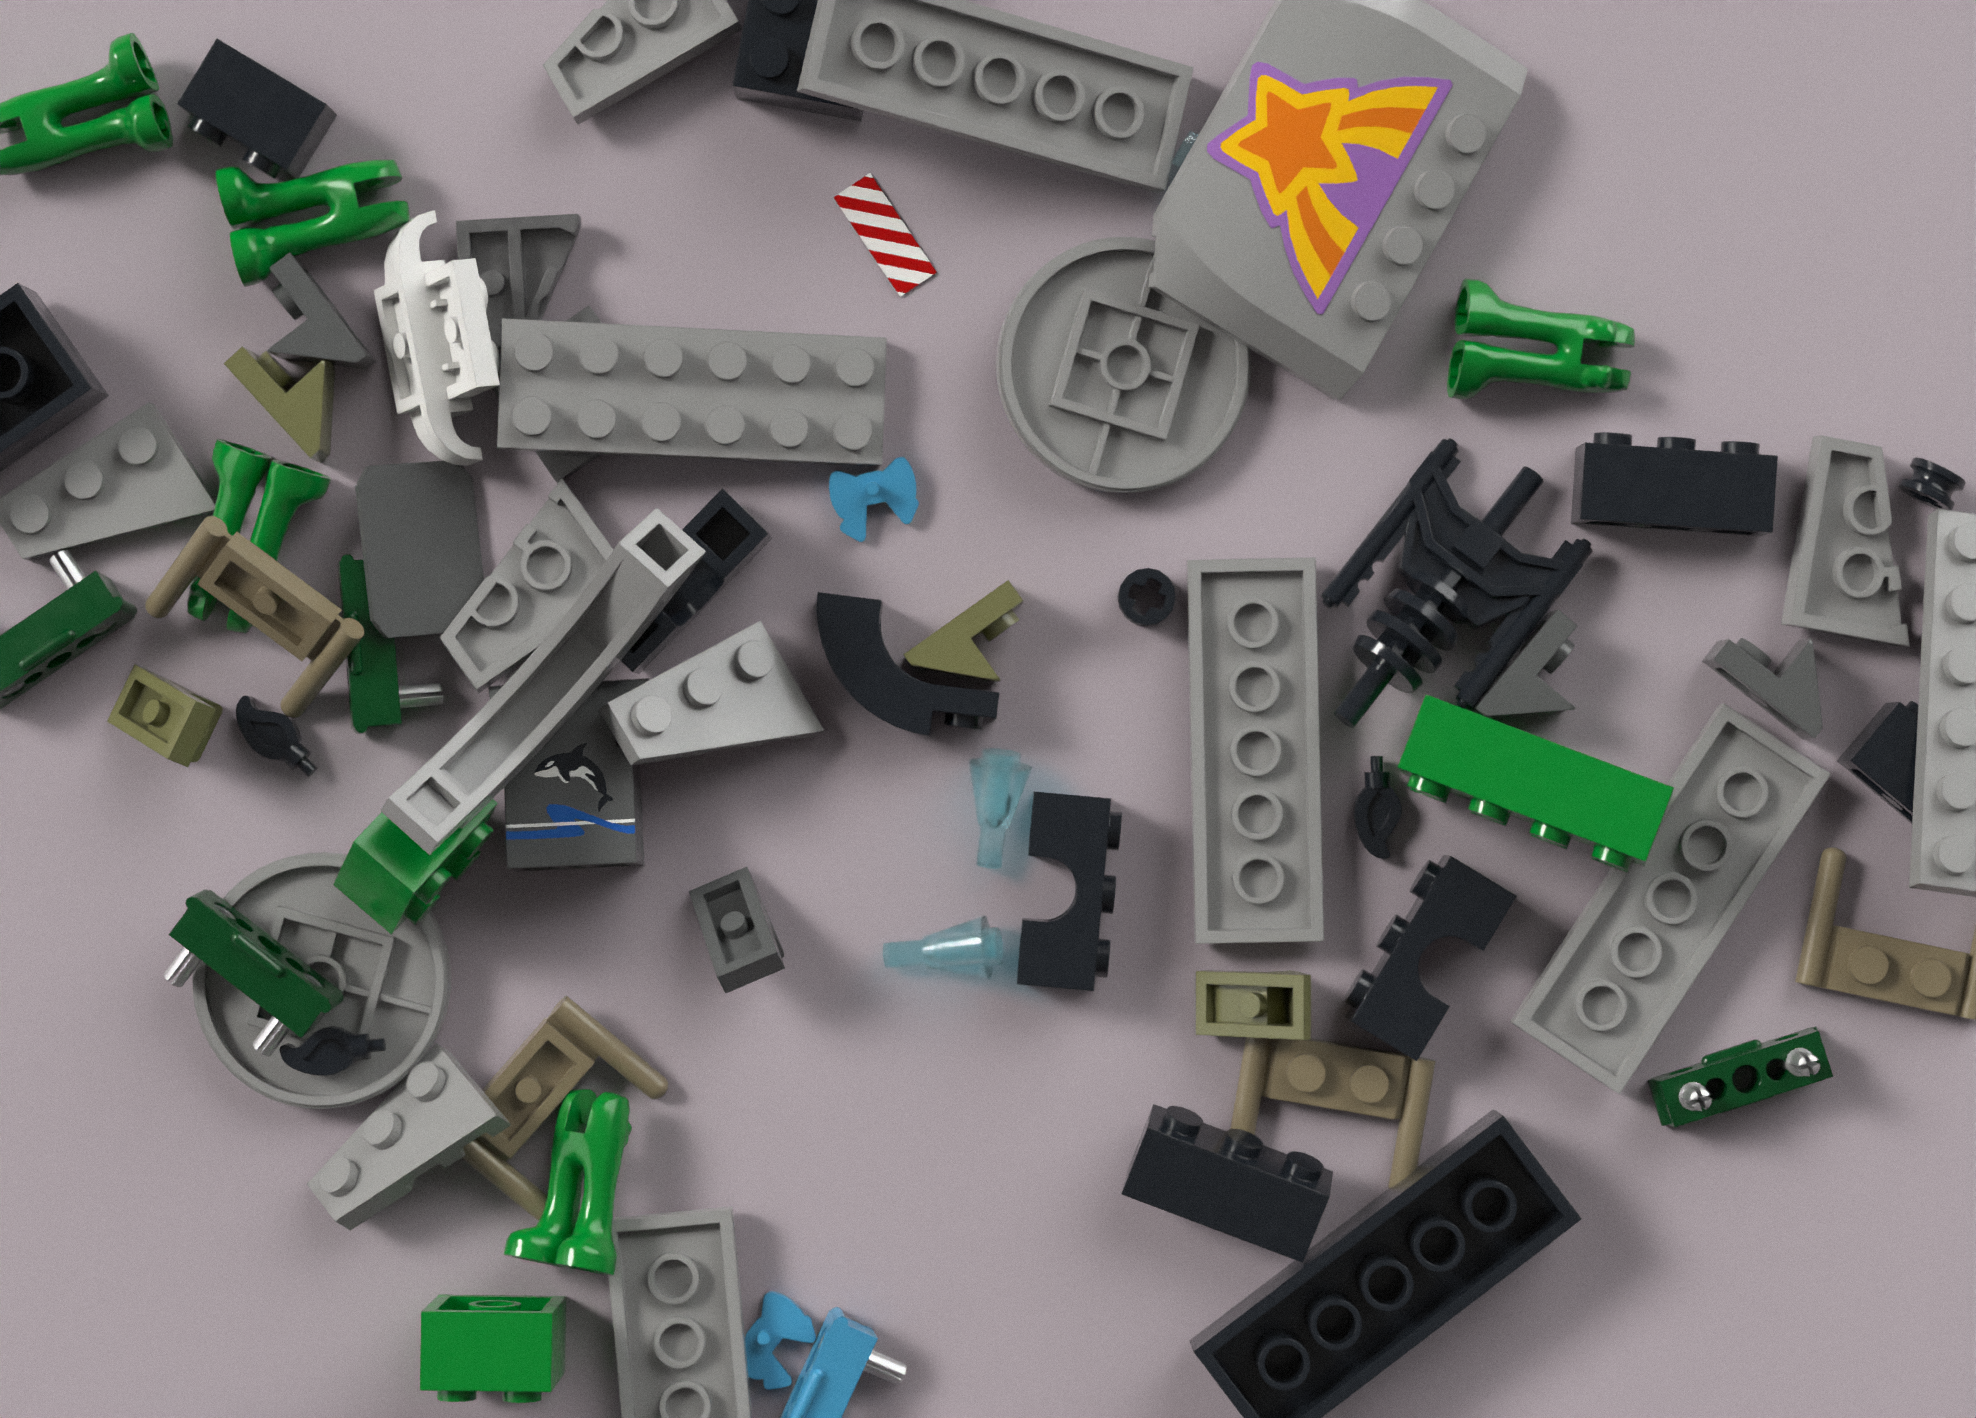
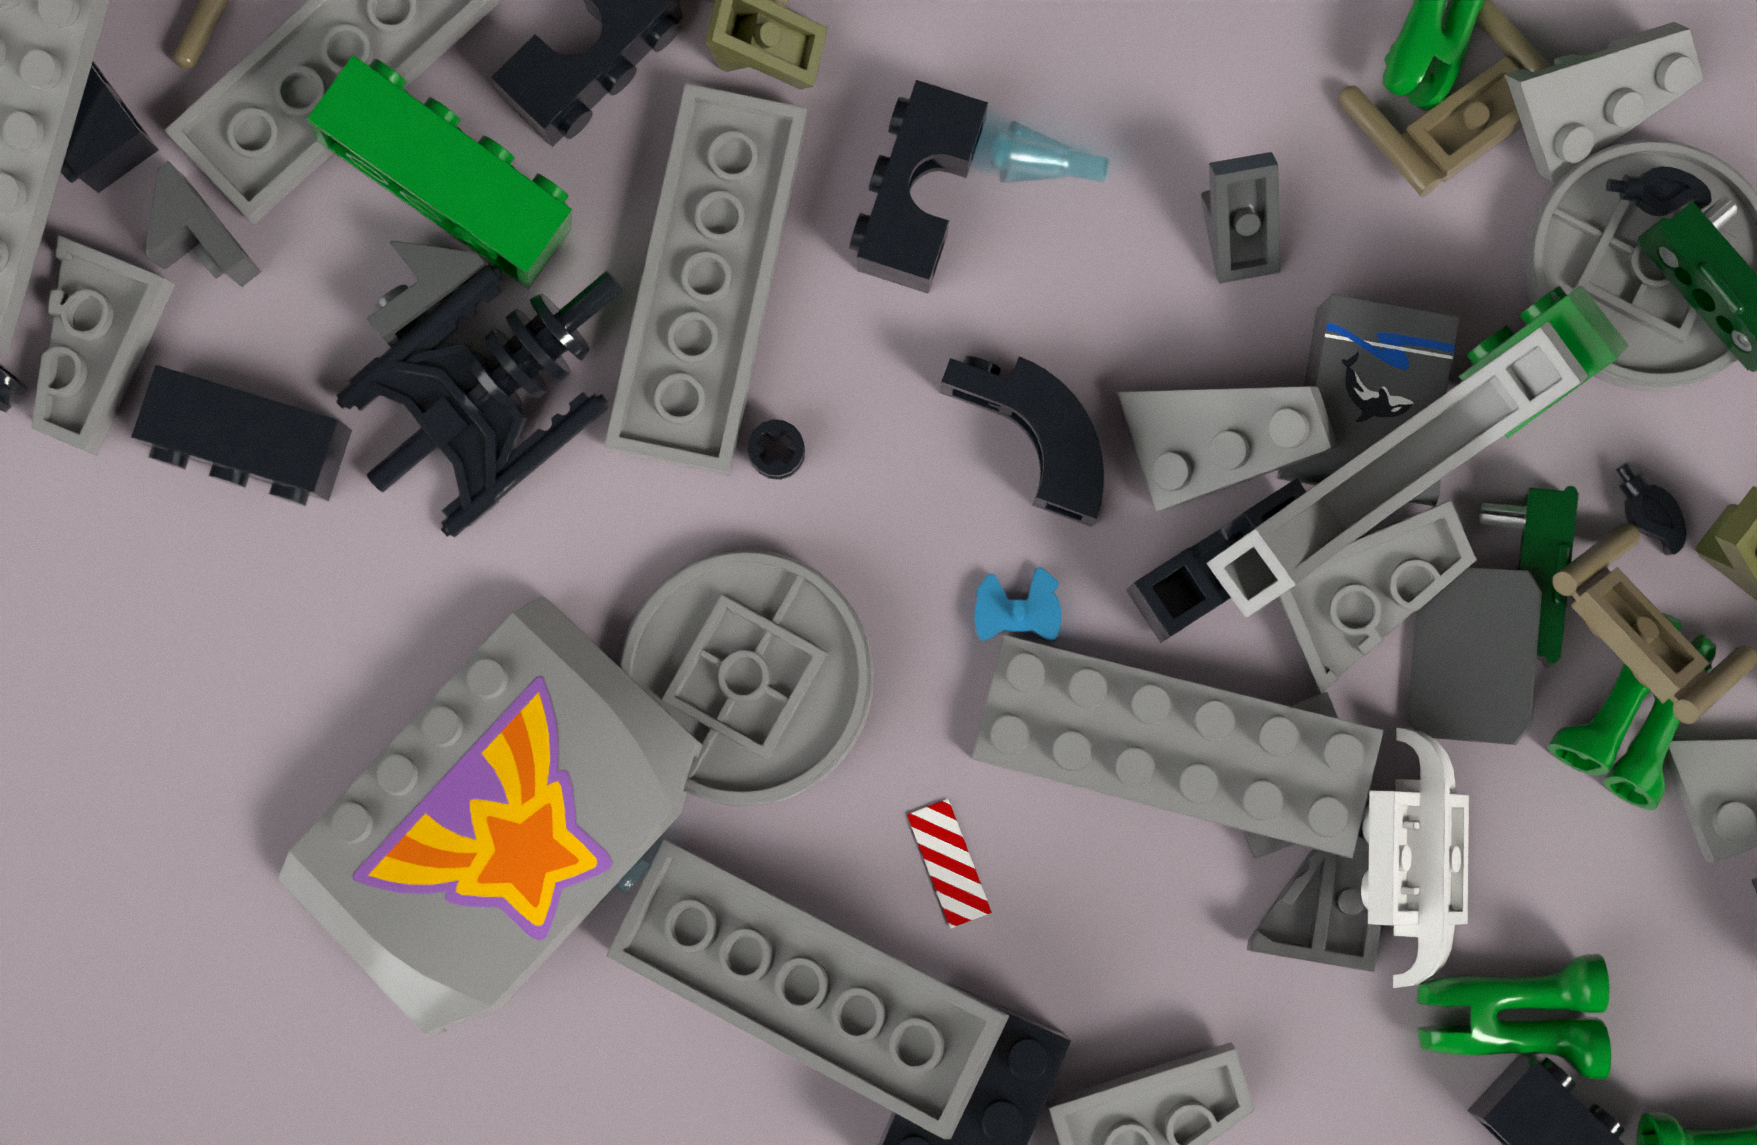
camera: 165 degrees left, 5 degrees down
(301, 411) = (1567, 815): olive slope -> none
(324, 332) = (1523, 892): dark grey slope -> none
(952, 645) = (975, 441): olive slope -> none
(997, 789) = (962, 299): clear light blue cone -> none
(1376, 809) = (605, 200): black piece -> none
(1478, 364) = (382, 644): green piece -> none

